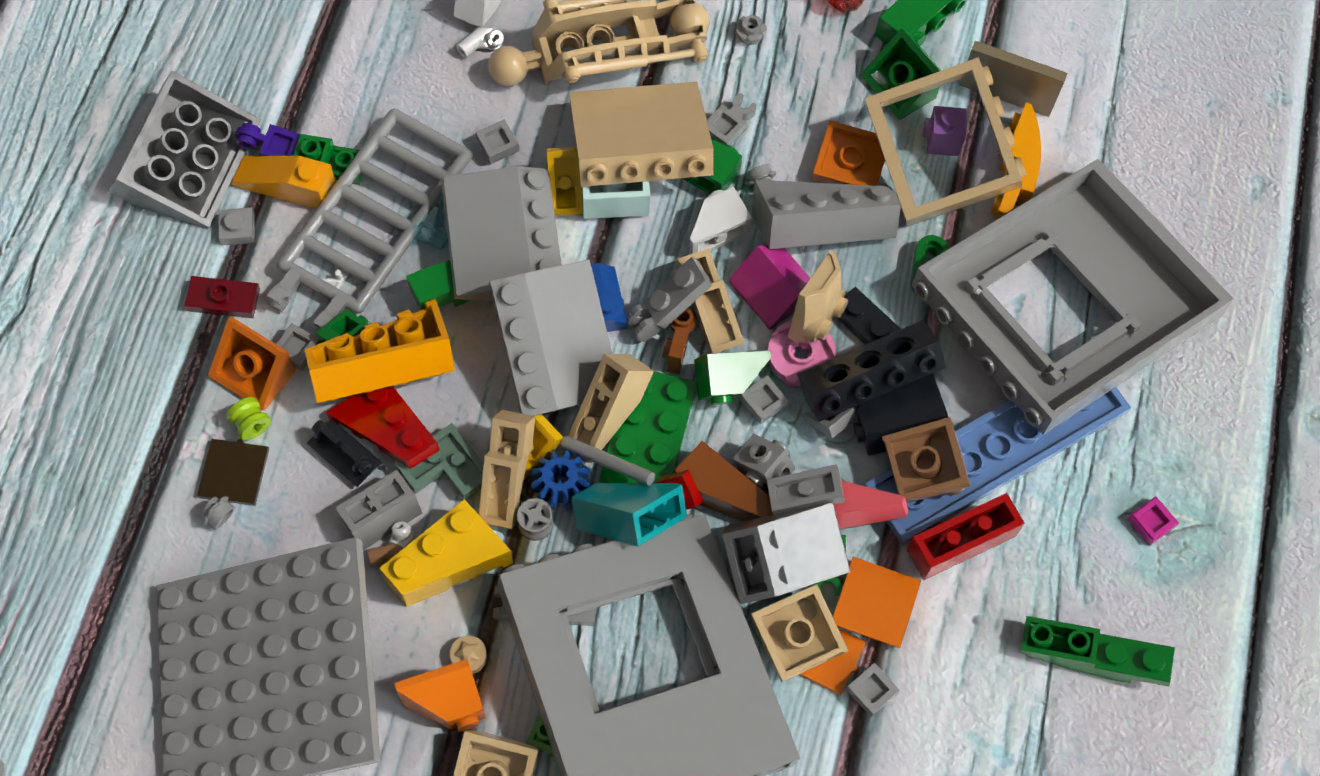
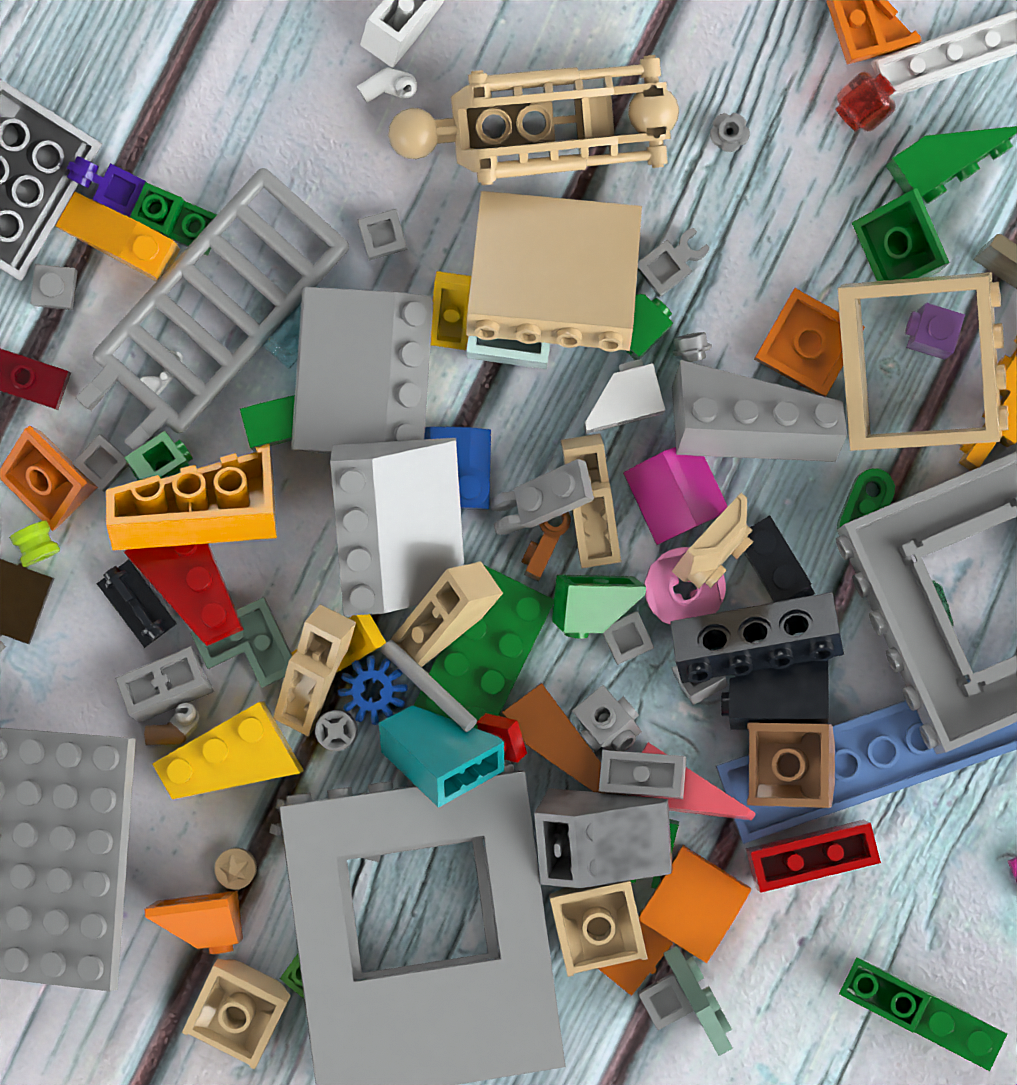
camera: 15 degrees right, 20 degrees up
(907, 675) = (701, 1000): none -> sand green plate

